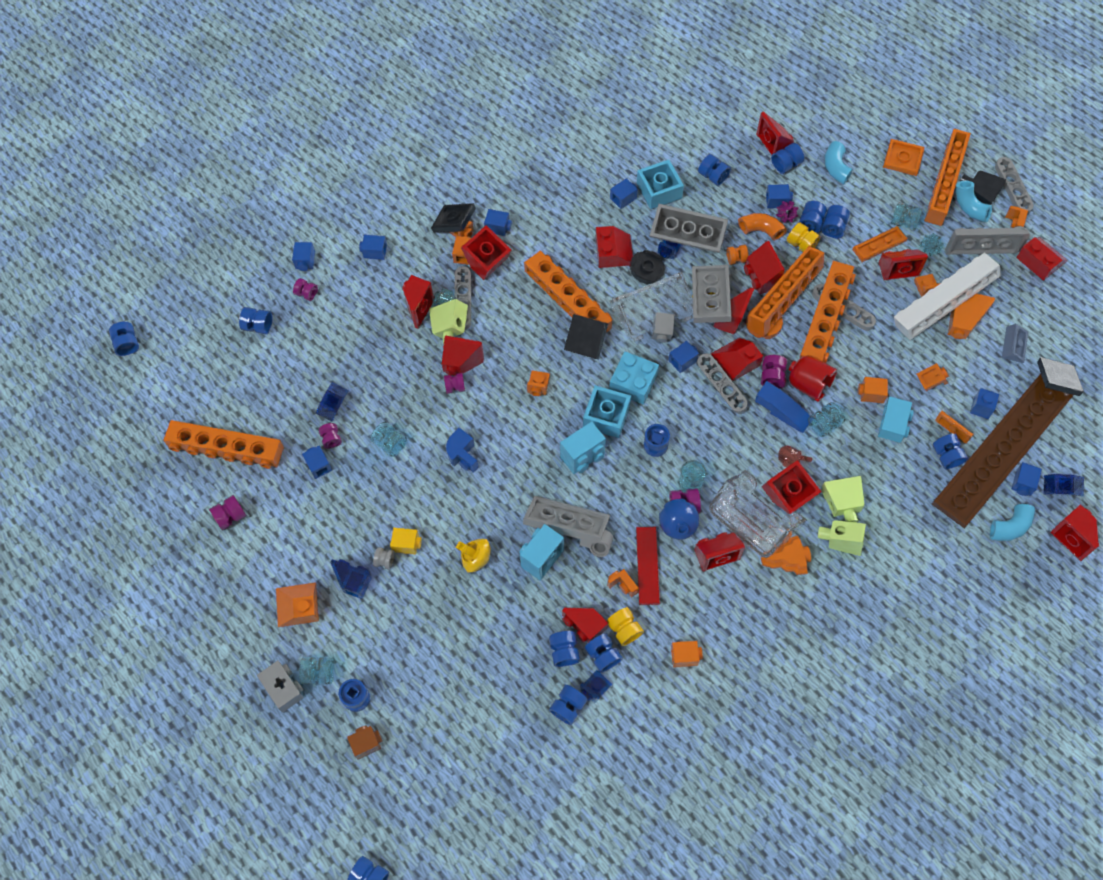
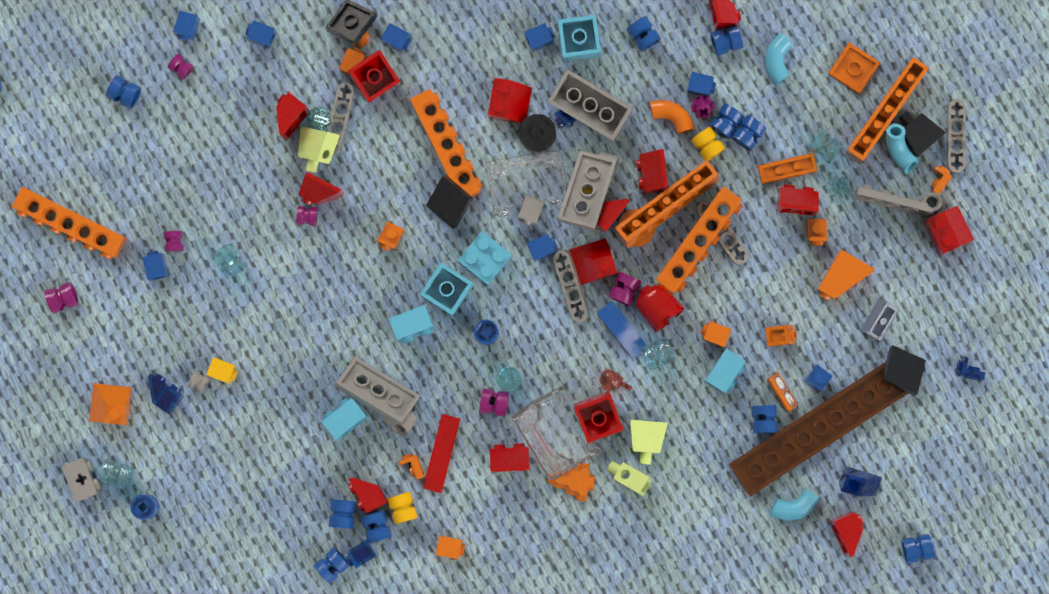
camera: 20 degrees right, 20 degrees up
(331, 401) = (183, 204): clear blue slope -> none
(364, 741) = (146, 549): dark orange brick -> none
(457, 449) = (292, 288): blue brick -> none
(474, 554) = (283, 402): yellow piece -> none
(679, 519) = (481, 421): blue cylinder -> none
(737, 254) = (629, 144): orange wheel -> none
(947, 296) = (824, 256): white brick -> none
(1026, 479) = (825, 466): blue brick -> none

